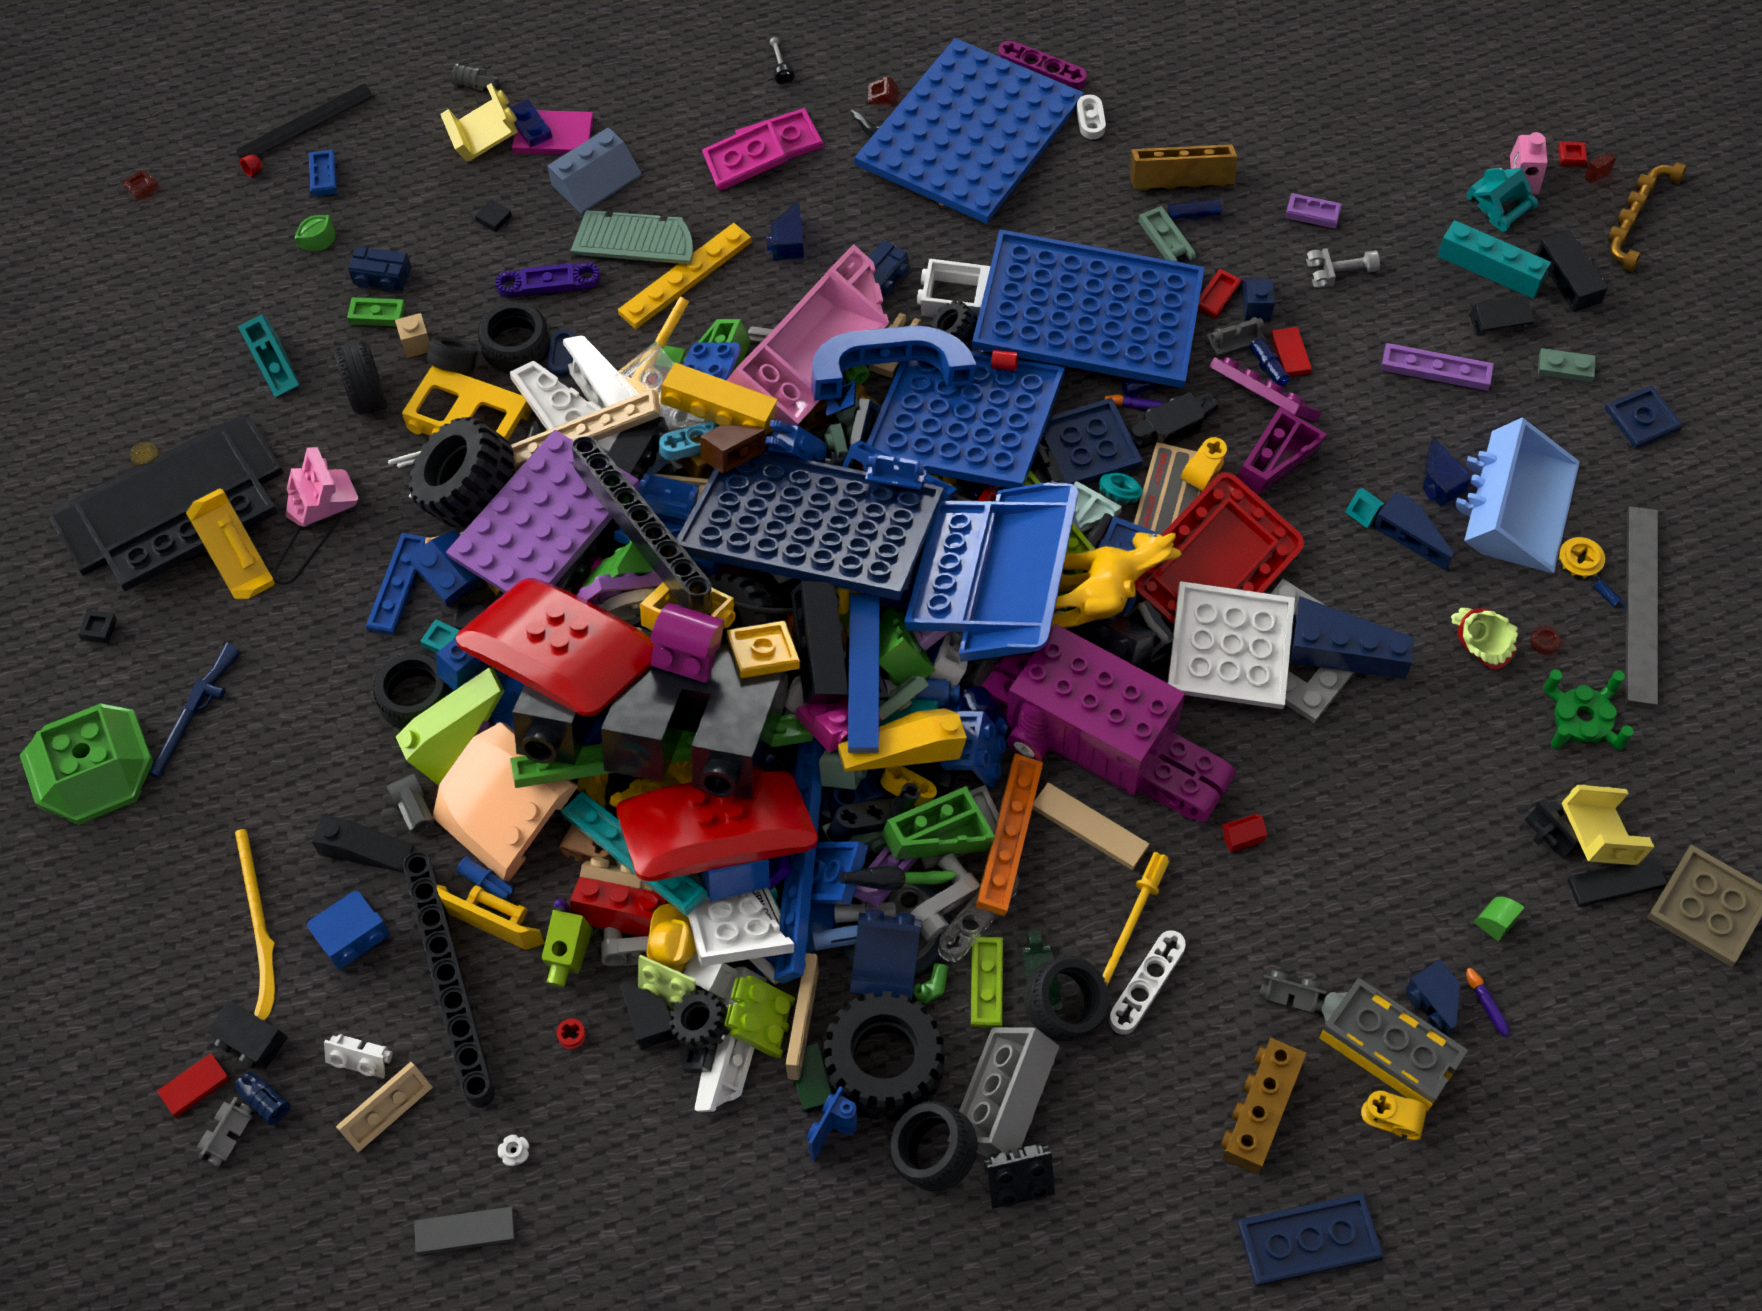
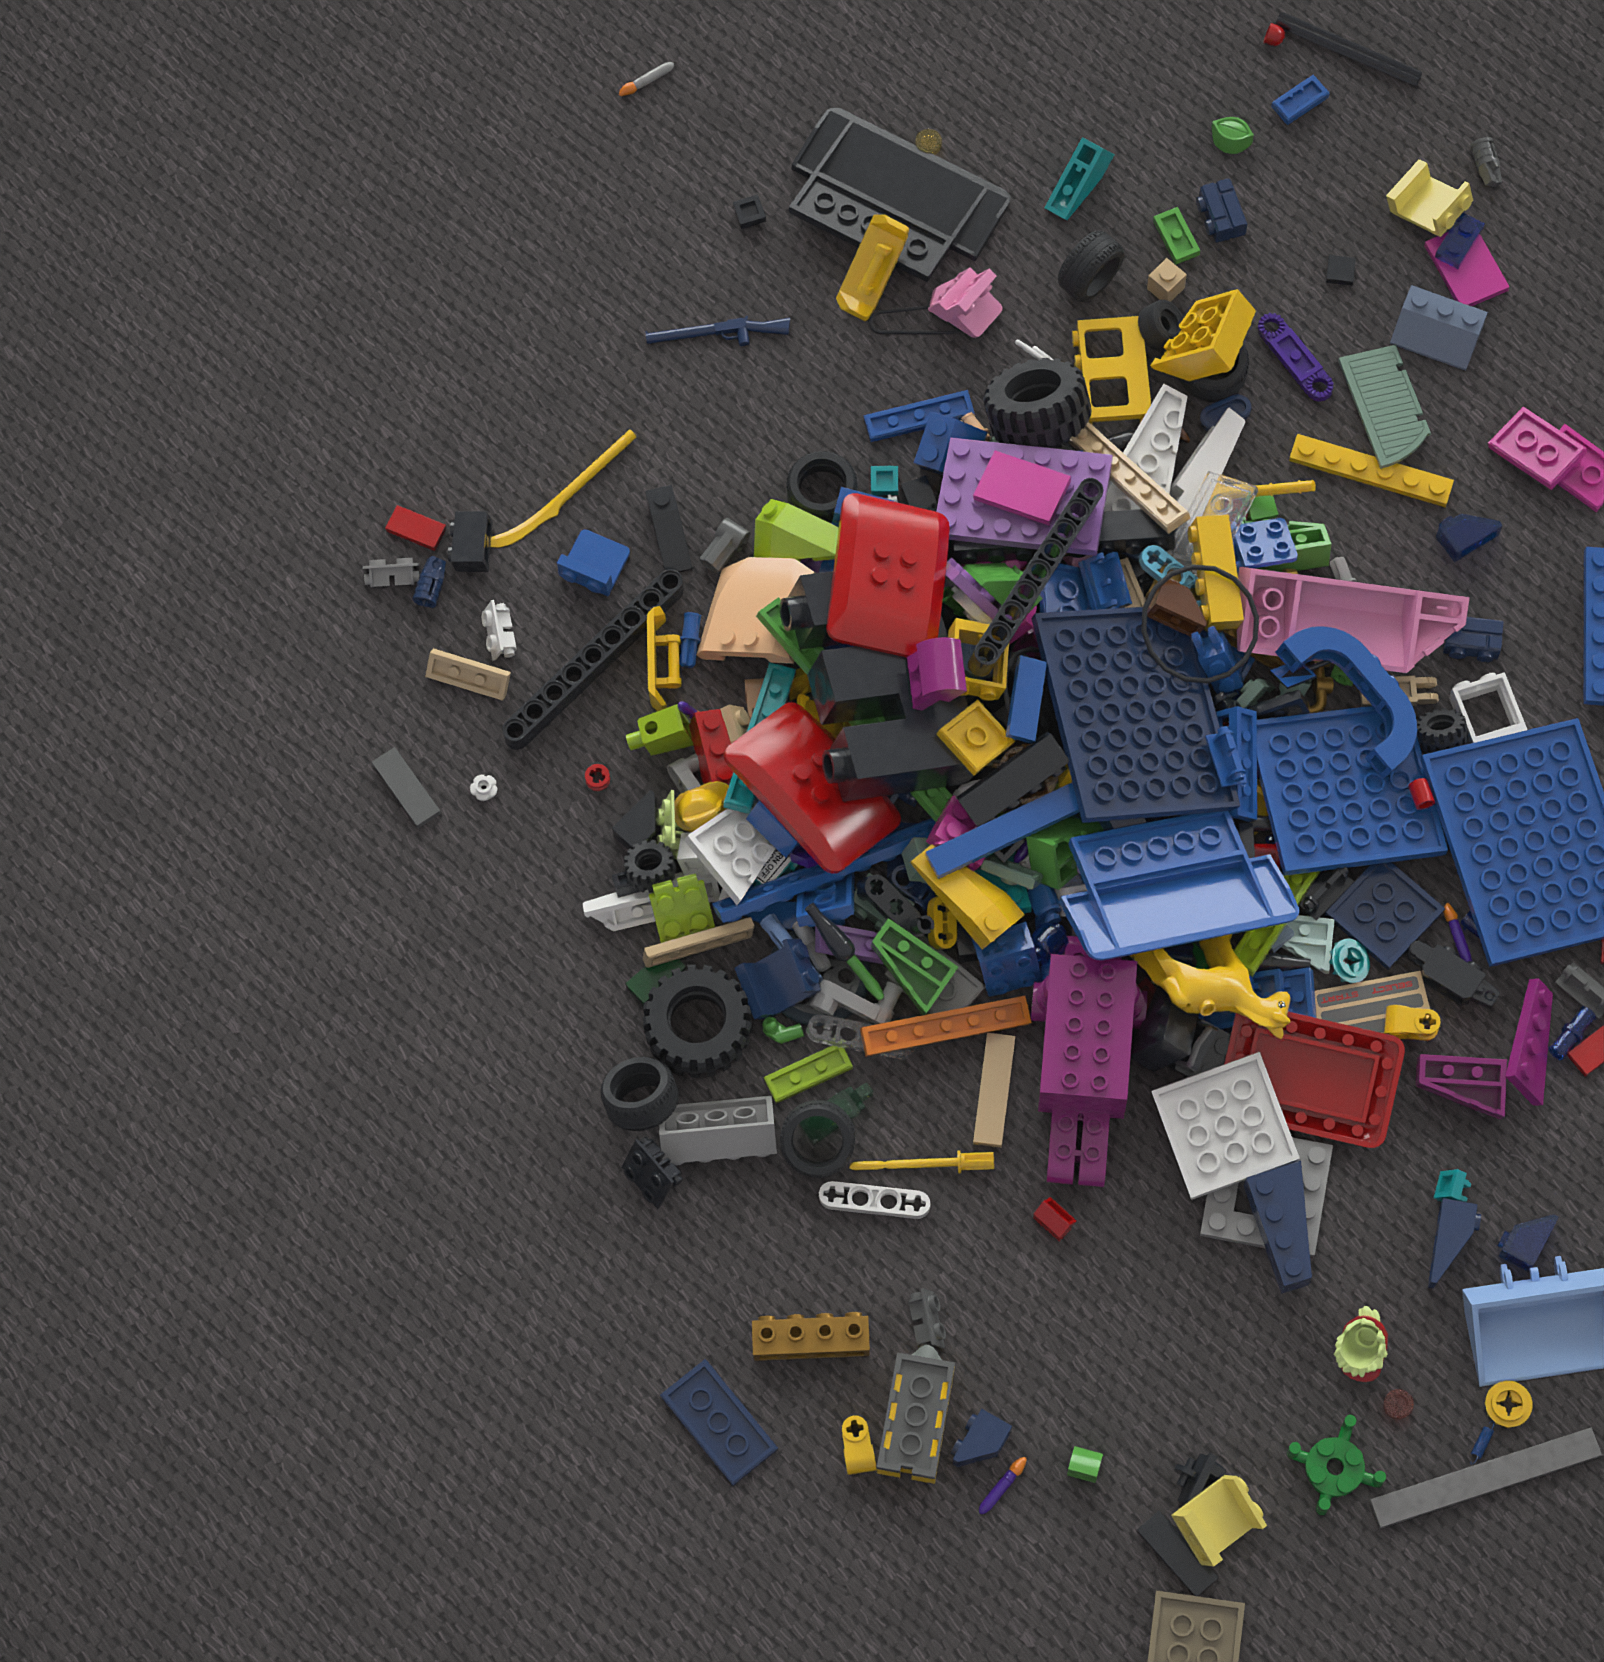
camera: 65 degrees right, 10 degrees up
(93, 784) = (633, 305): bright green piece -> none
(493, 318) = (1208, 337): none -> yellow wedge
(539, 509) = (1022, 488): none -> dark pink tile
(735, 472) = (1240, 586): none -> black piece
(752, 589) = (1026, 699): none -> blue tile
(839, 1114) = (628, 1005): blue hinge -> none

